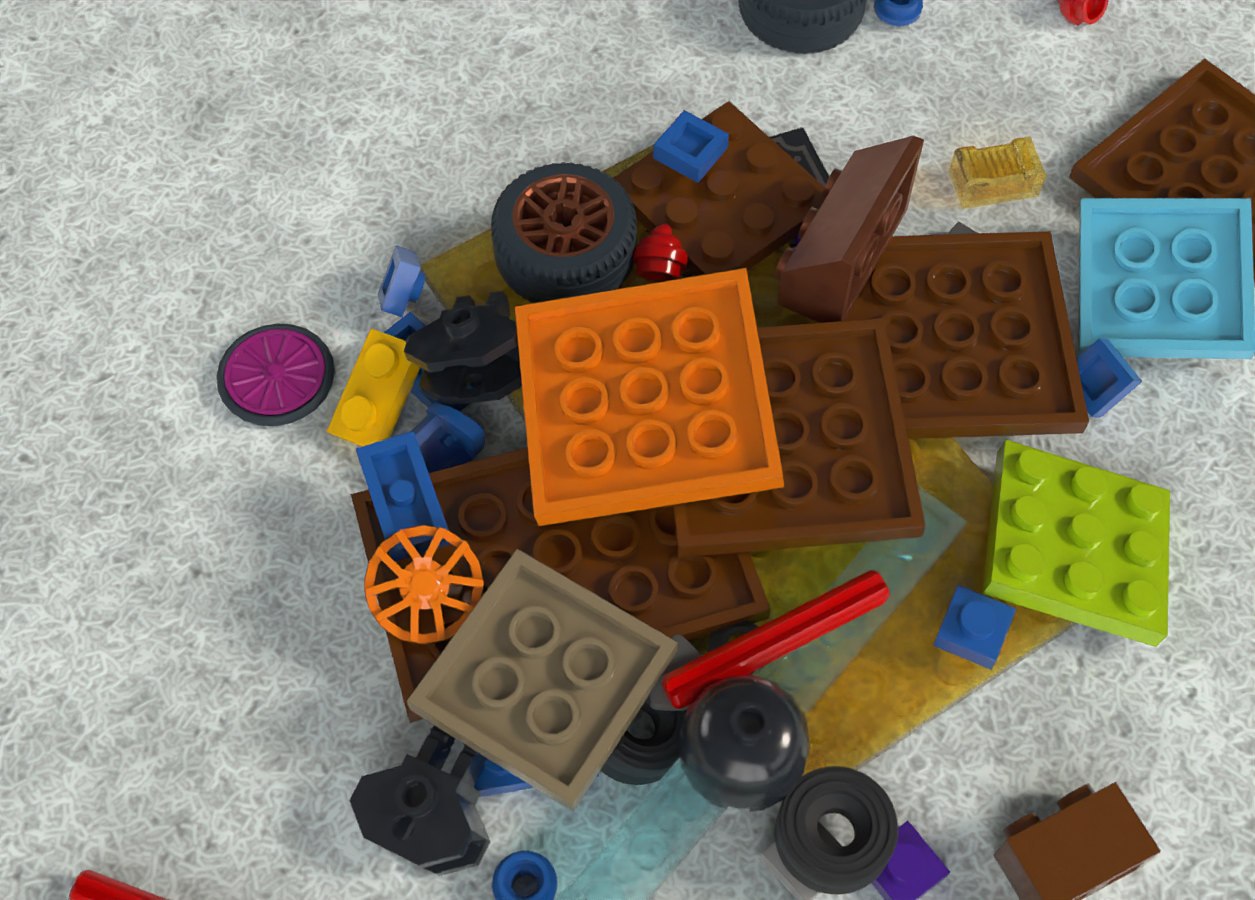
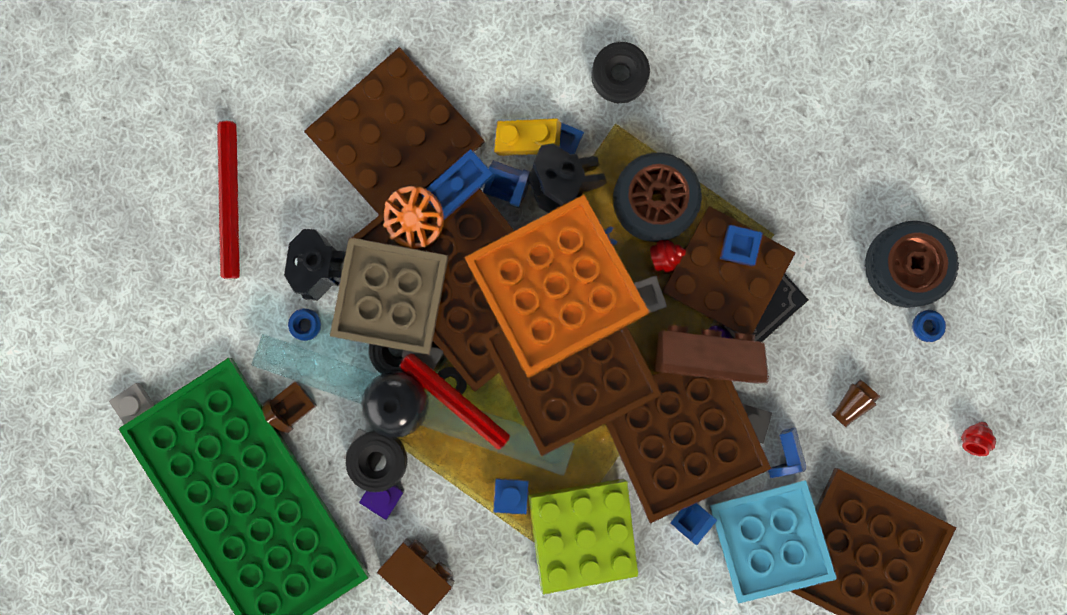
camera: 70 degrees right, 25 degrees up
(257, 607) = (392, 131): none -> reddish brown plate
(275, 374) = (522, 77): magenta wheel -> none
(341, 210) = (620, 54): none -> black tyre
(401, 282) = (598, 118): blue plate -> none
(978, 113) = (855, 403): none -> reddish brown cone
(997, 173) = (817, 425): clear yellow piece -> none
(1031, 212) = (793, 455): none -> blue tile

